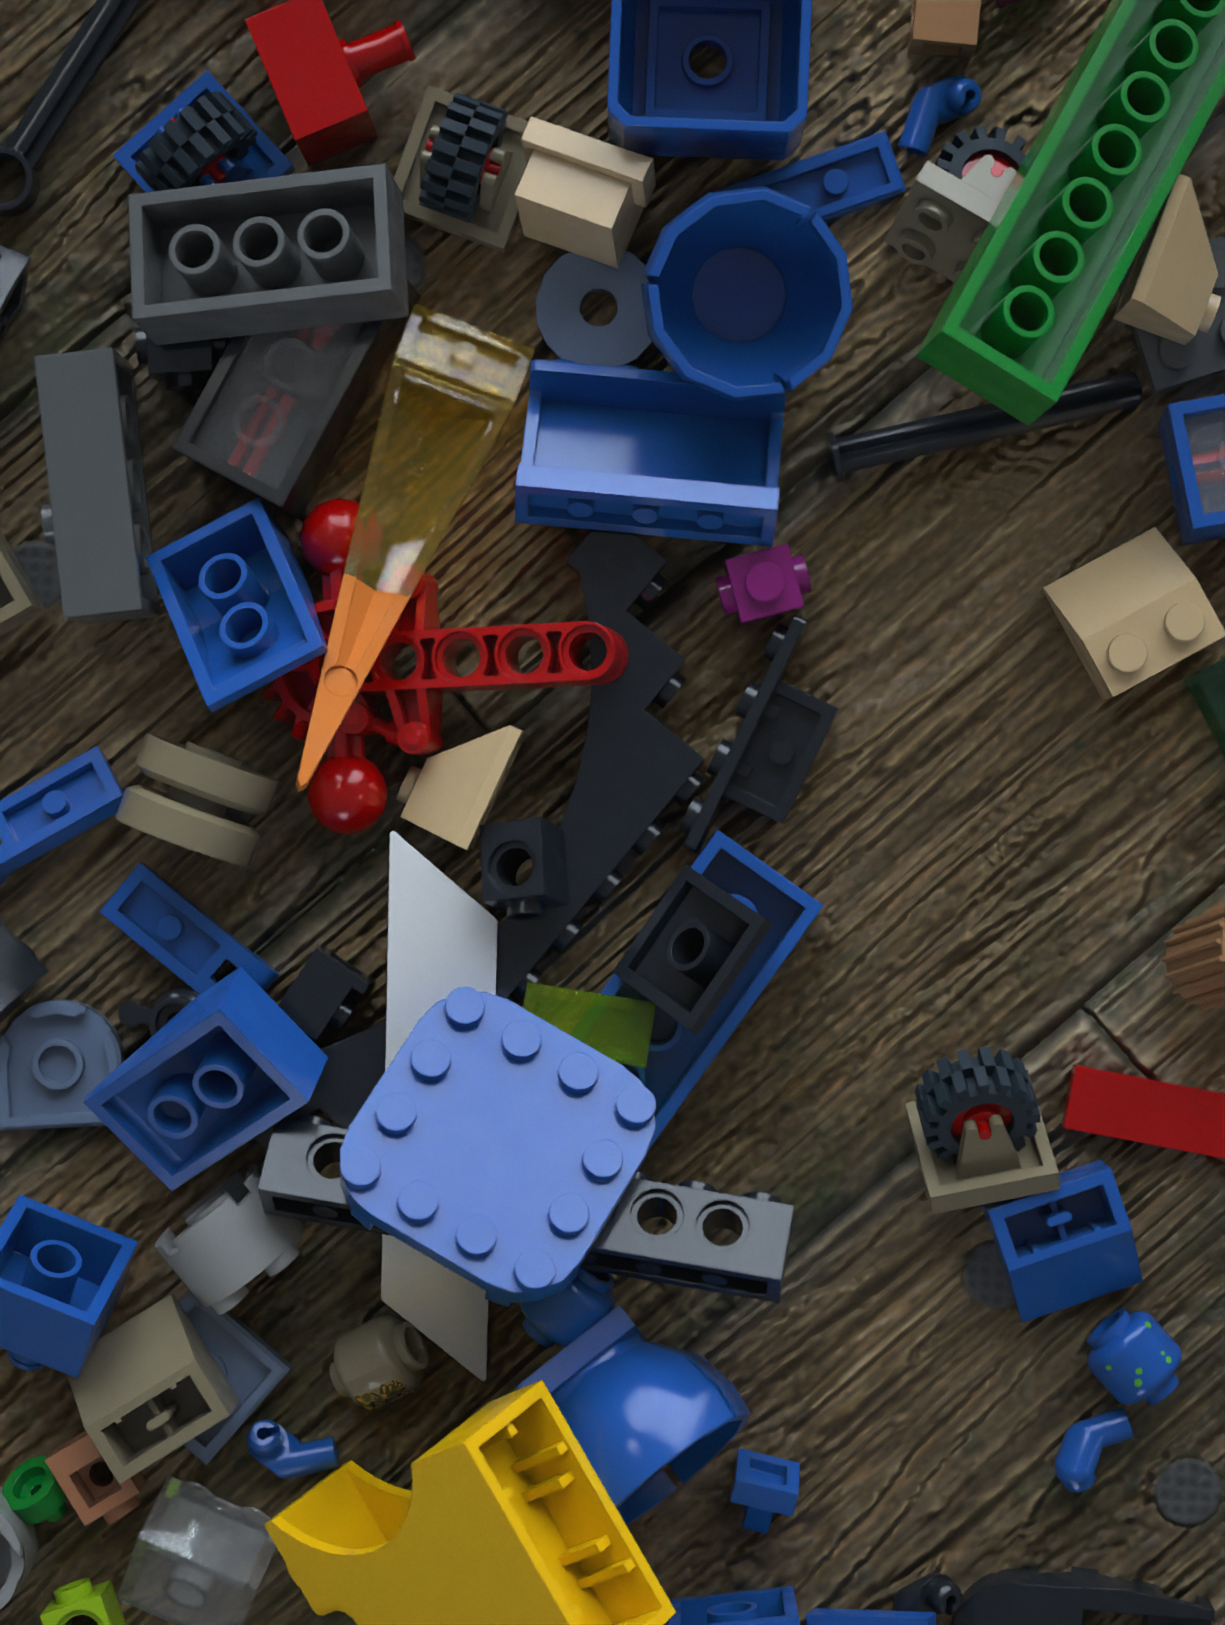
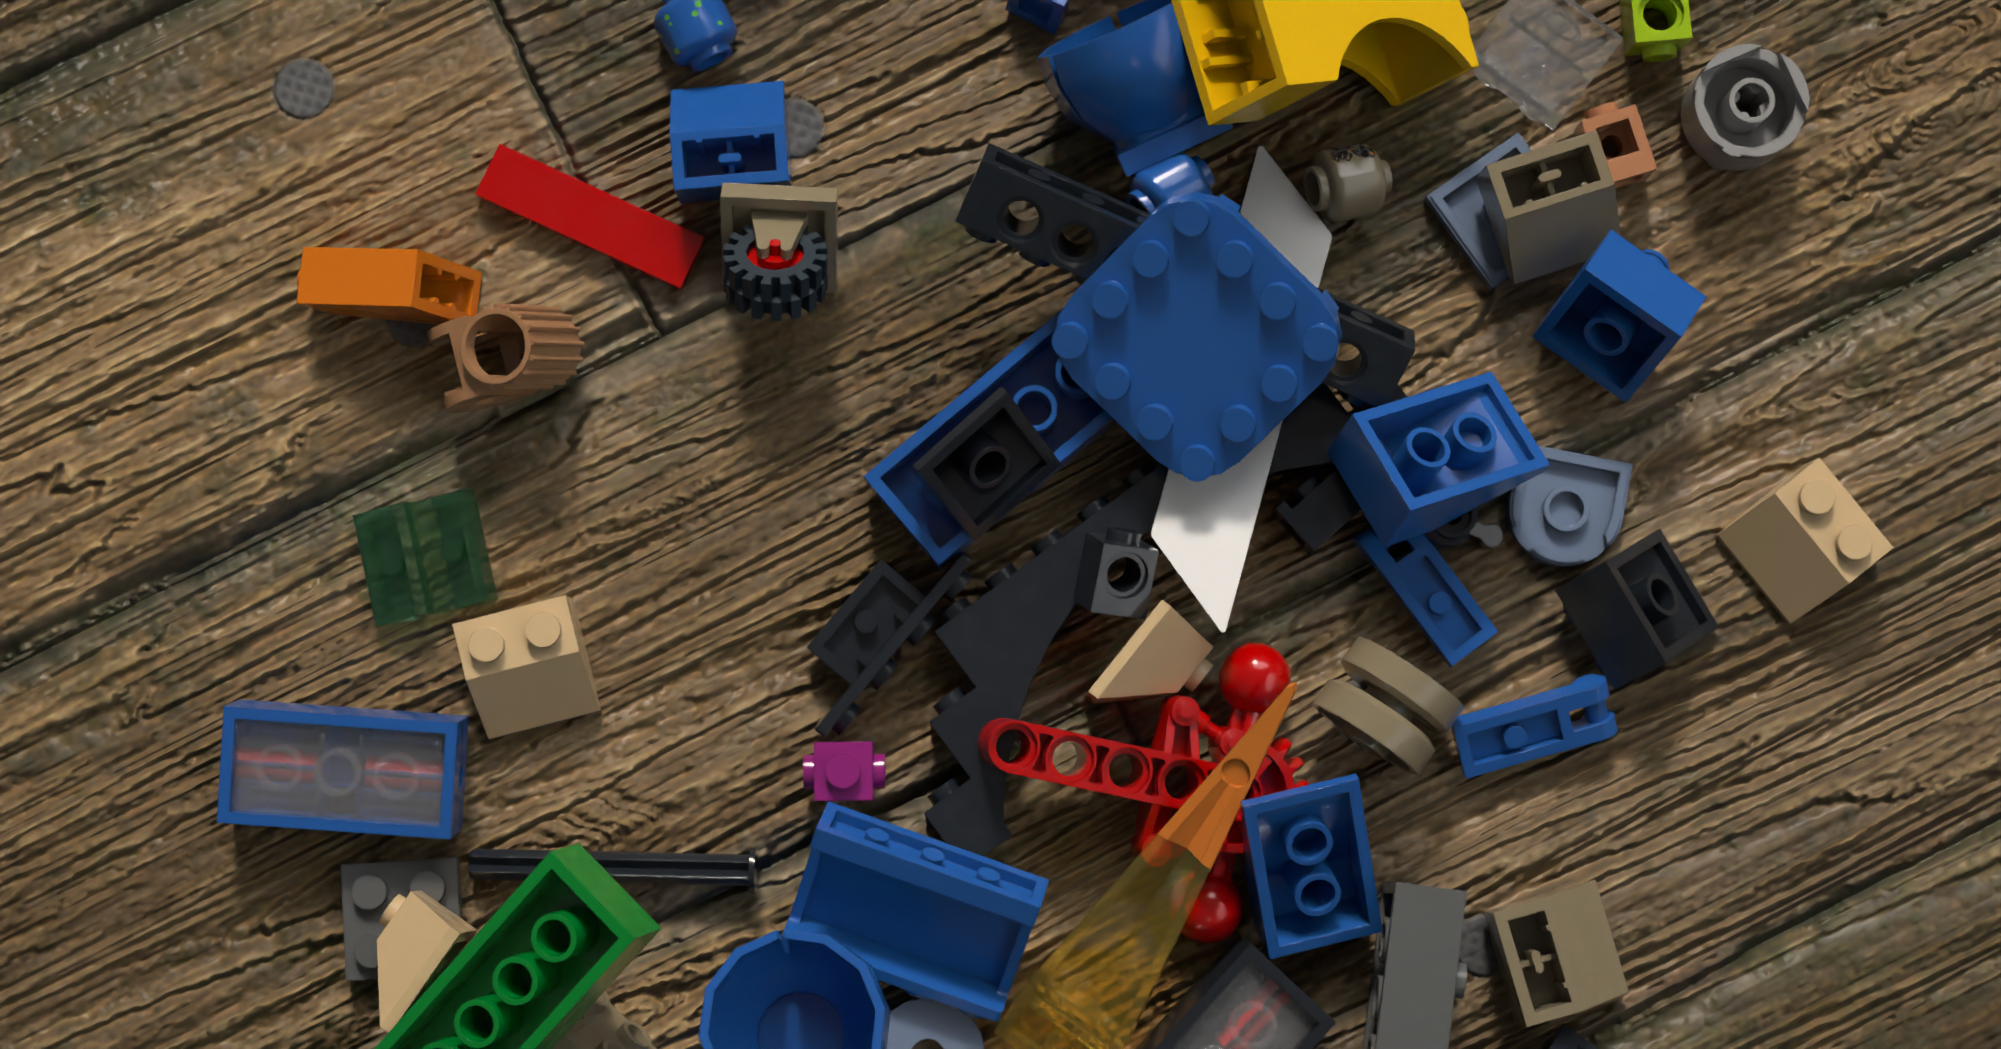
camera: 165 degrees left, 5 degrees down
(35, 1492) = (1672, 145): green tile -> none
(229, 1242) = (1452, 316): light grey brick -> none
(287, 1455) = (1446, 123): blue arm -> none
(604, 1022) = (1080, 421): clear neon green tile -> none

